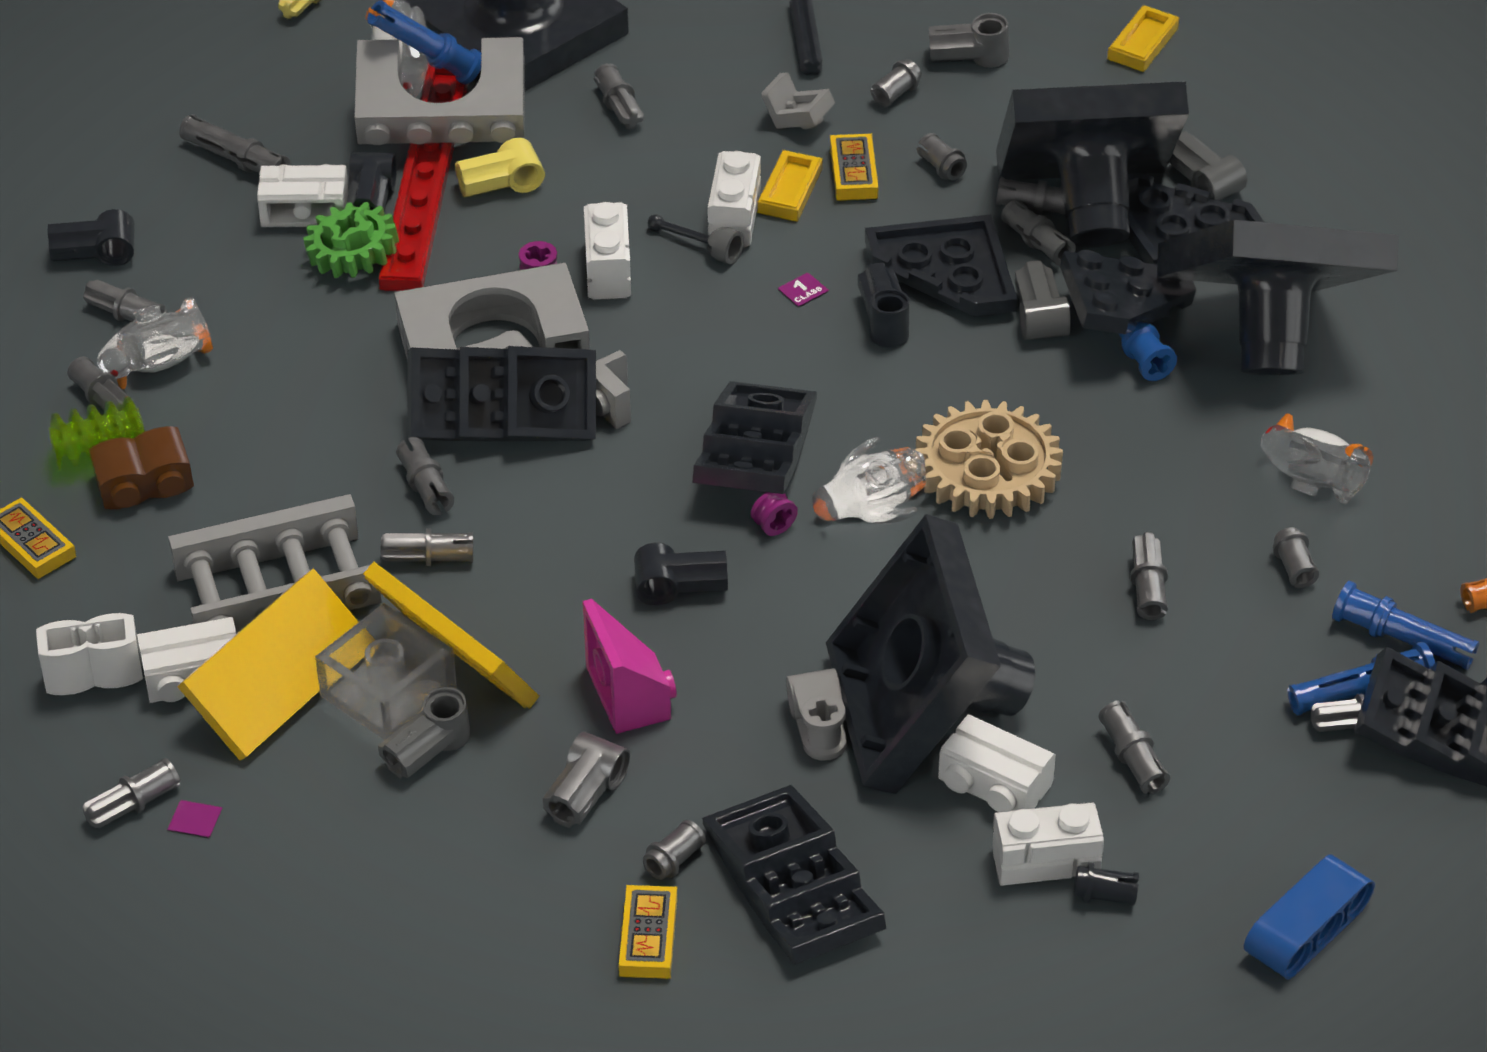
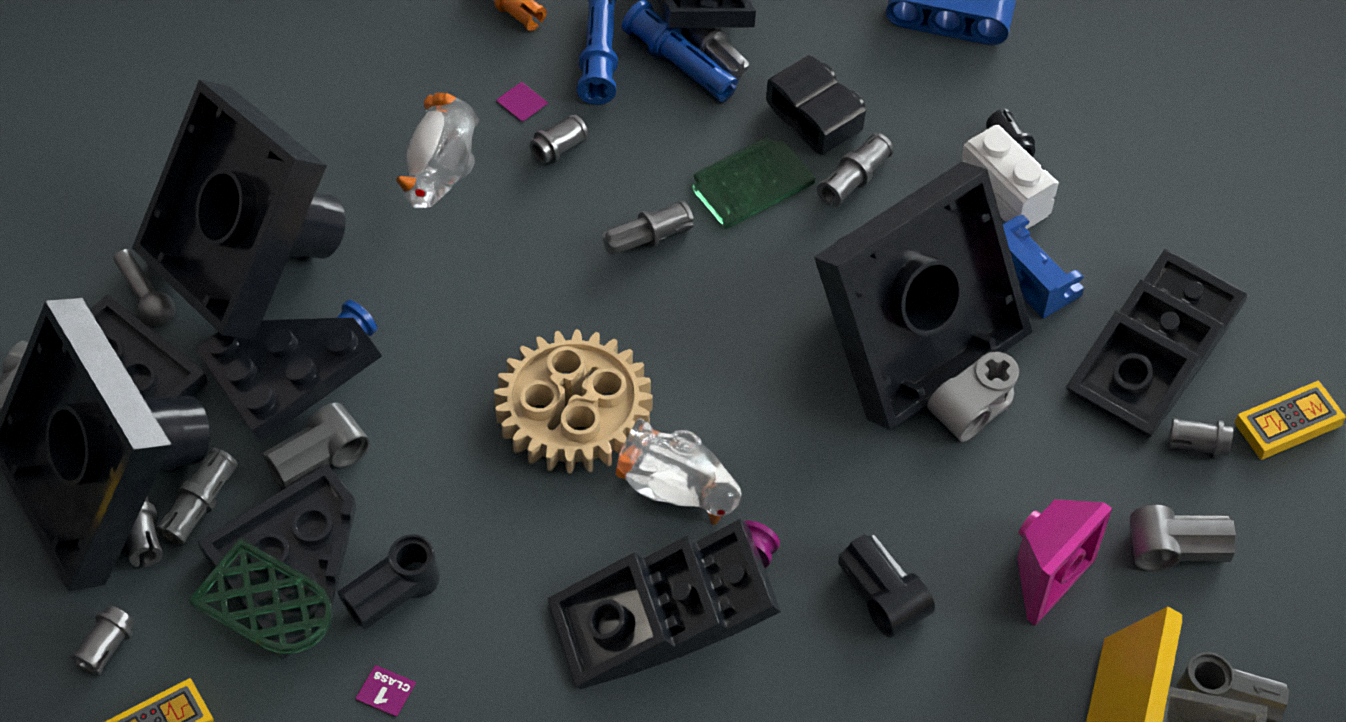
camera: 120 degrees left, 10 degrees up
(936, 821) = (1039, 277): none -> blue hinge
(962, 231) = (199, 600): none -> clear green window
(1174, 681) = (751, 181): none -> clear green window
(1232, 748) = (816, 104): none -> black brick
(1370, 563) = (522, 101): none -> magenta sticker

